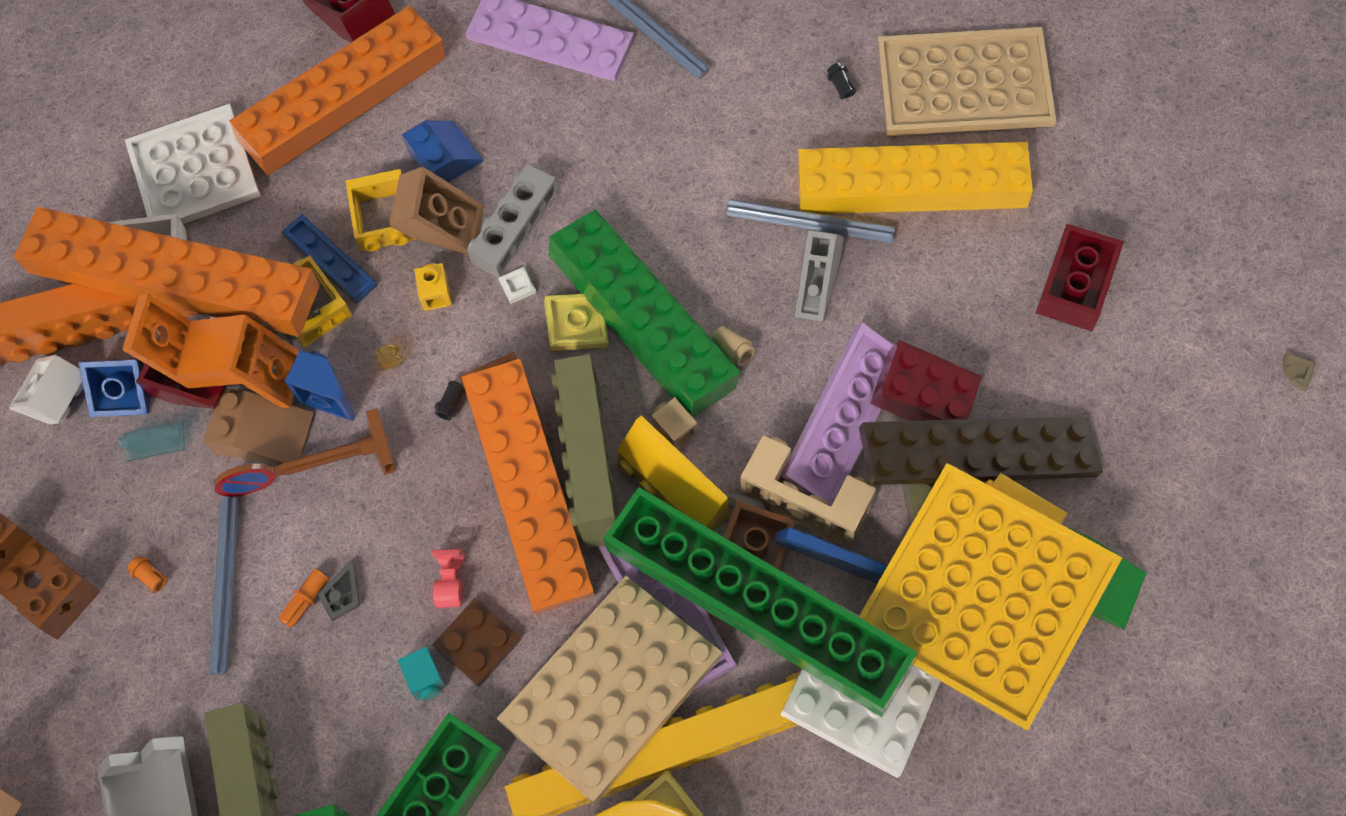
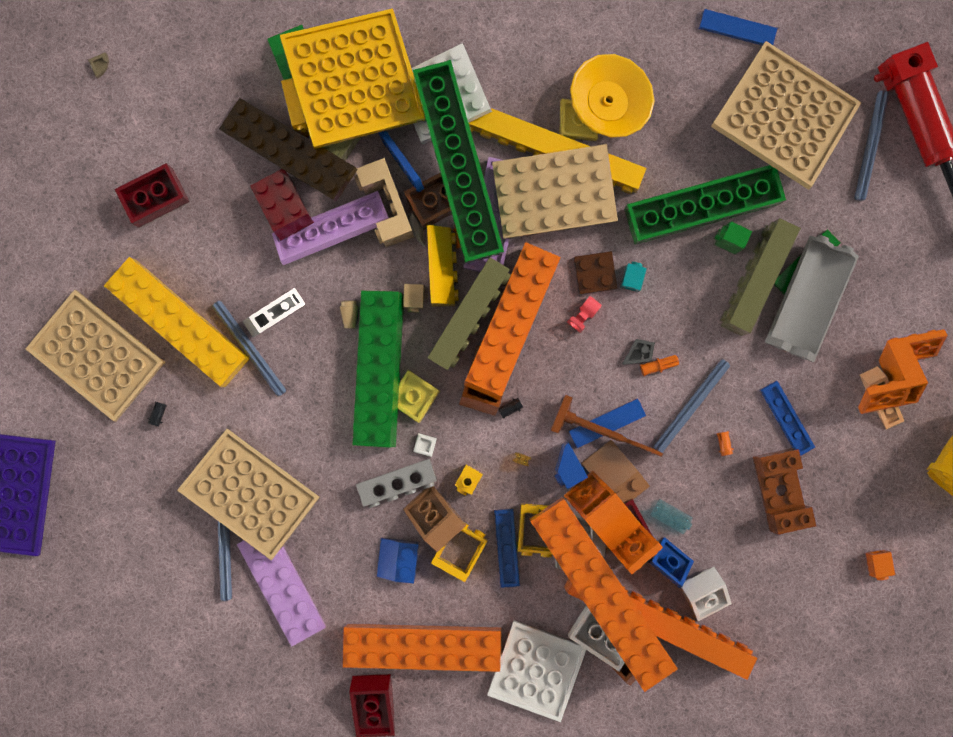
camera: 150 degrees left, 20 degrees up
(86, 671) = (787, 417): none -> blue tile
(314, 485) = (611, 420): none -> blue tile
(664, 82) = (248, 494): none -> tan plate

